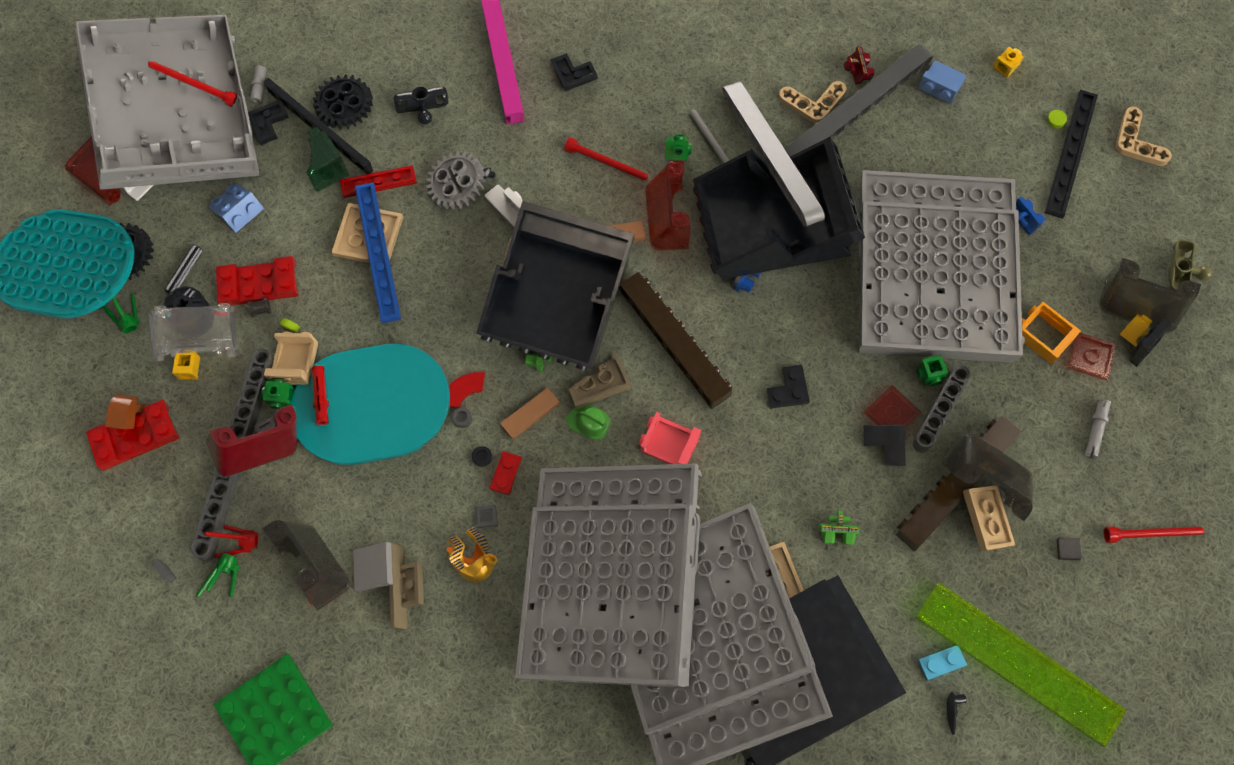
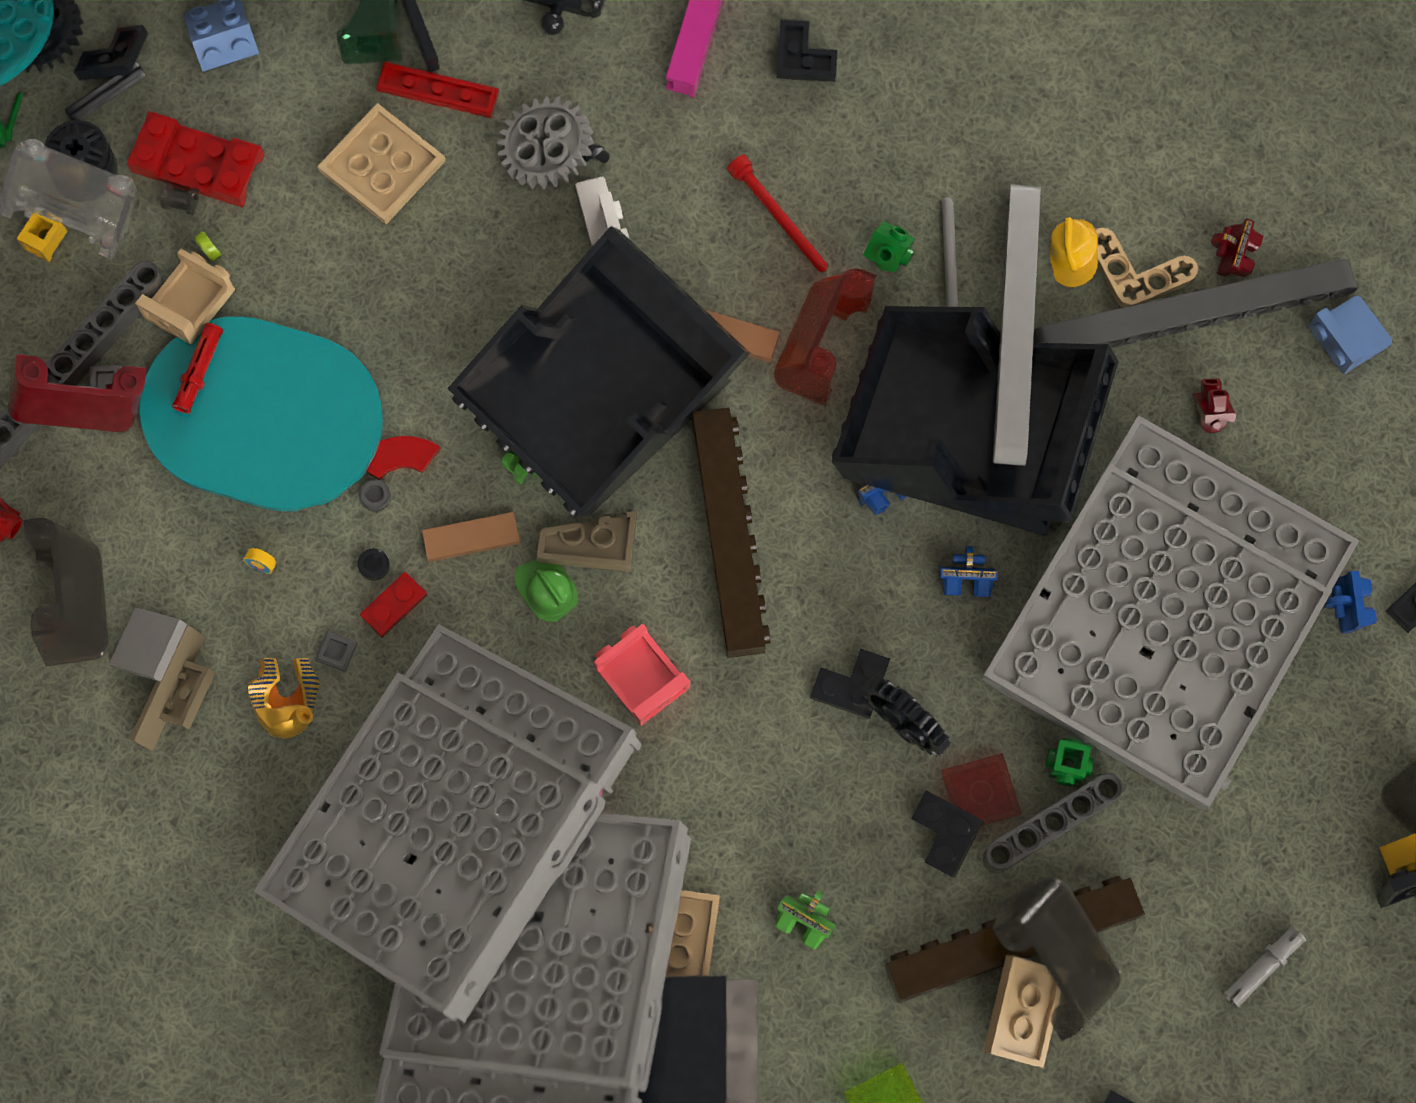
camera: 25 degrees right, 5 degrees up
(182, 246) = (115, 60): none -> black plate
(277, 393) = (142, 337): green brick -> none
(378, 253) = (380, 198): blue tile -> none
(414, 486) = (259, 560): none -> yellow tile
(775, 107) = (1074, 252): none -> yellow piece
(811, 304) = (981, 577): none -> blue hips
(833, 387) = (905, 716): none -> black gear
(896, 149) = (1213, 406): none -> dark red hips
(1056, 321) = (1309, 807): light orange window -> none
(1092, 356) = (1323, 858): clear red tile -> none

